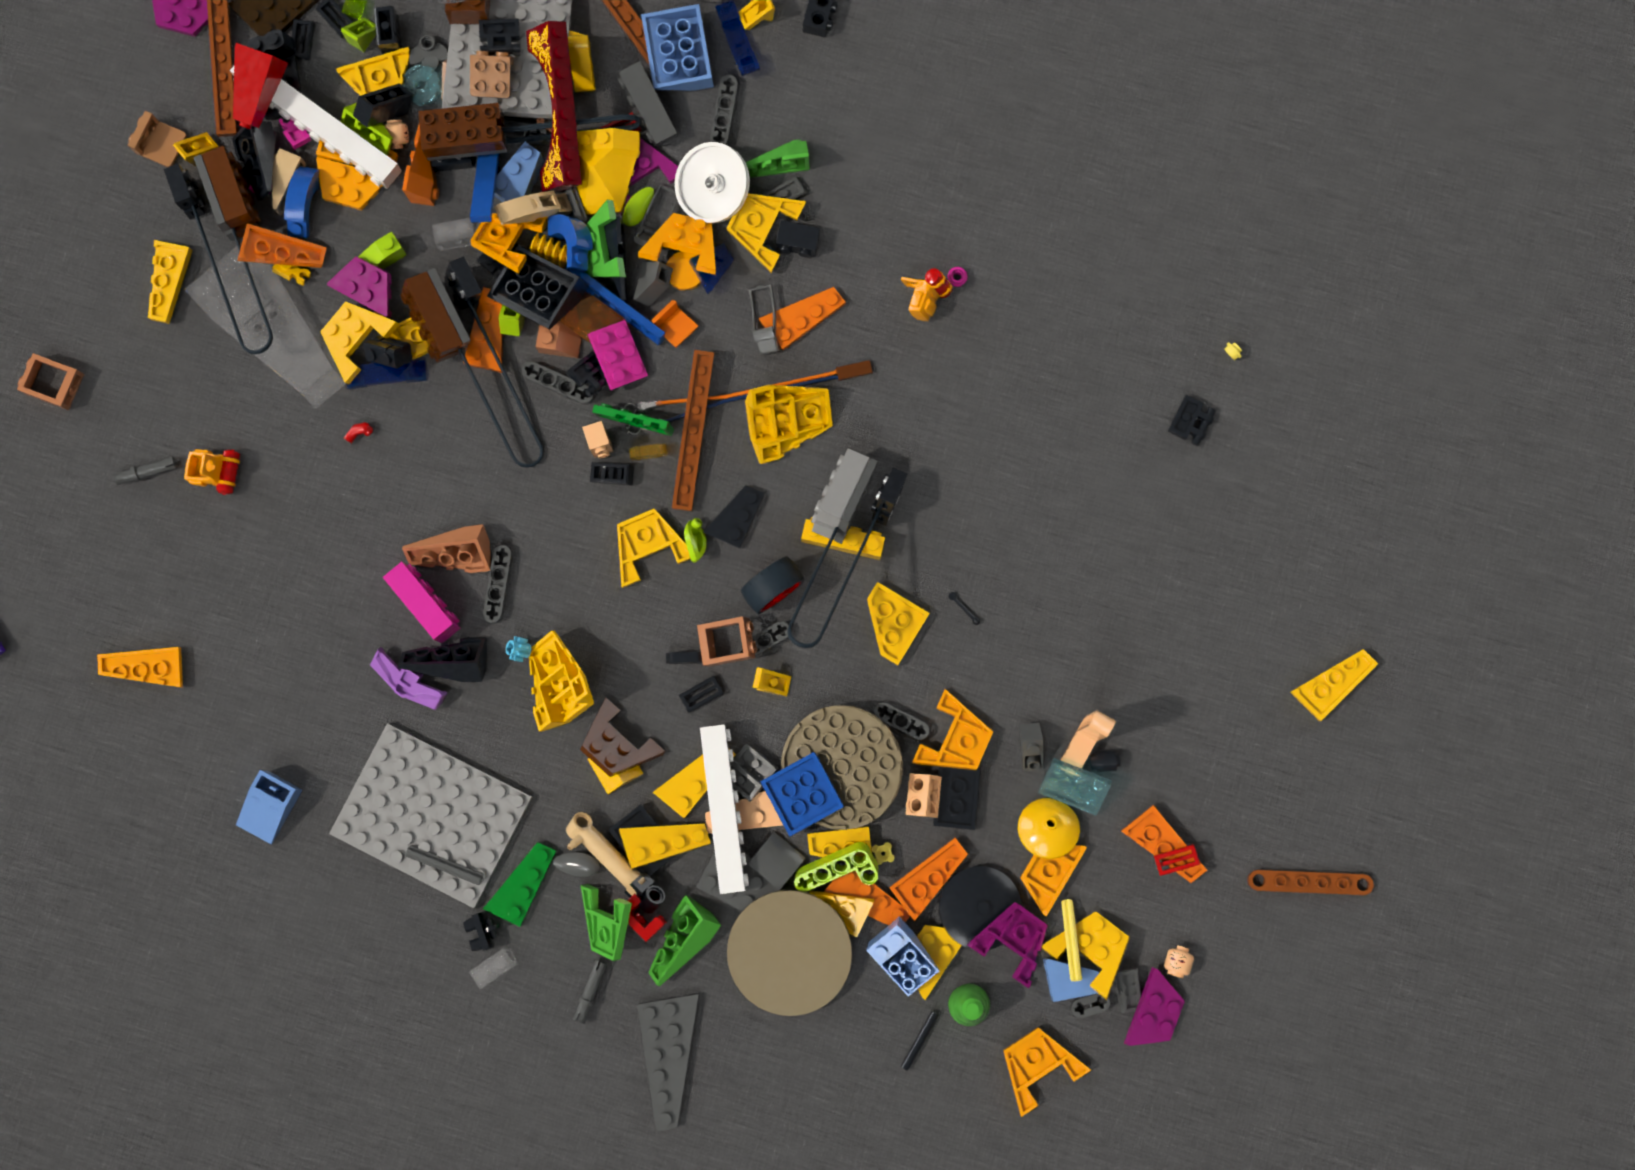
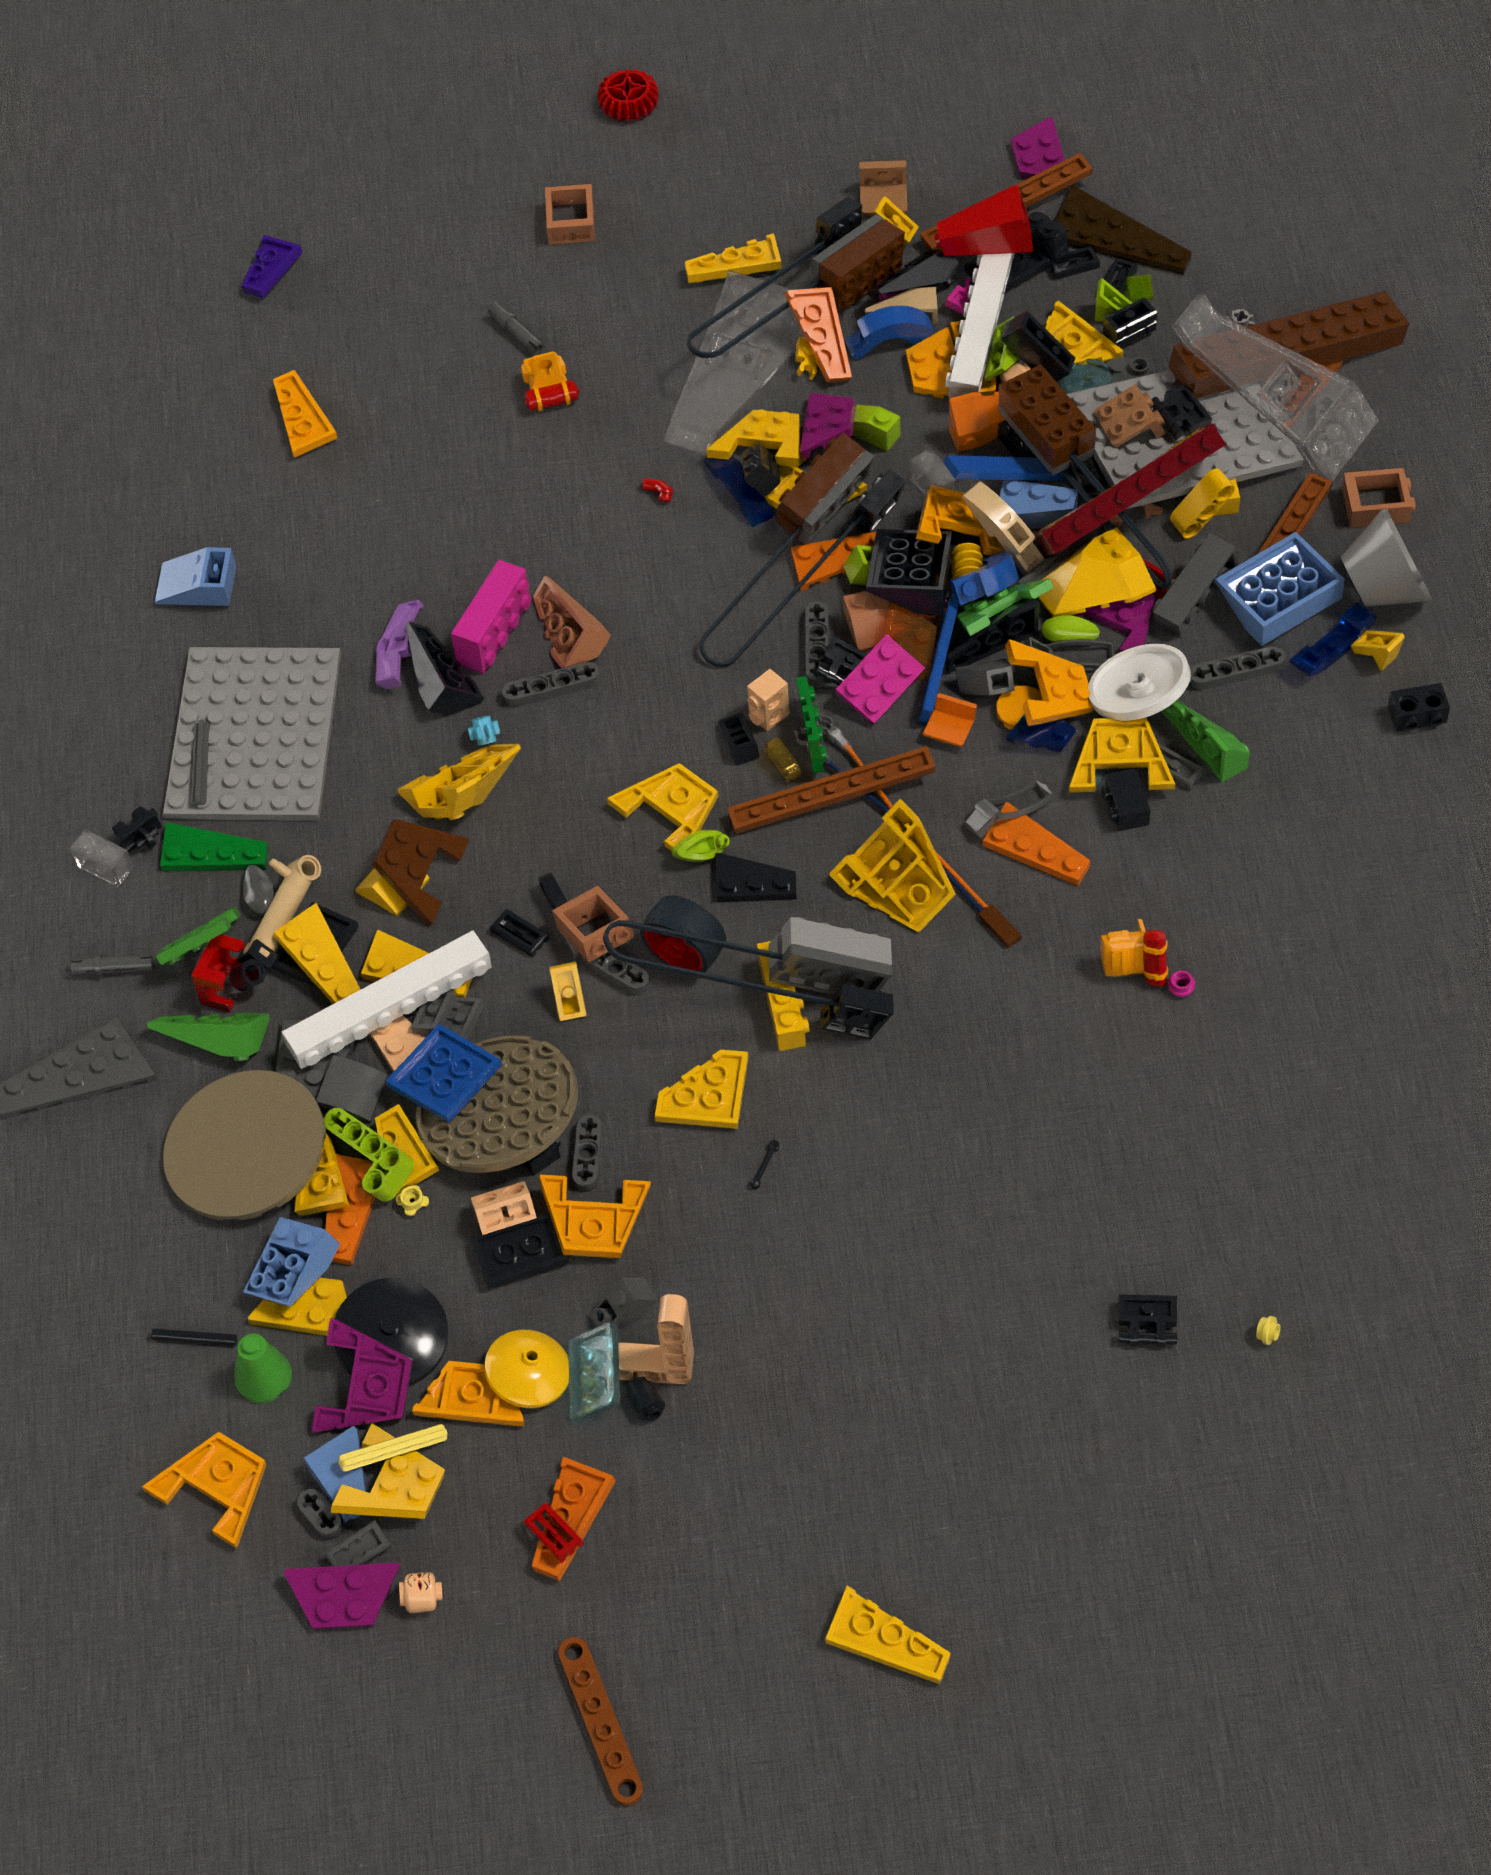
camera: 65 degrees right, 25 degrees down
(926, 880) = (394, 1255): orange wing -> none

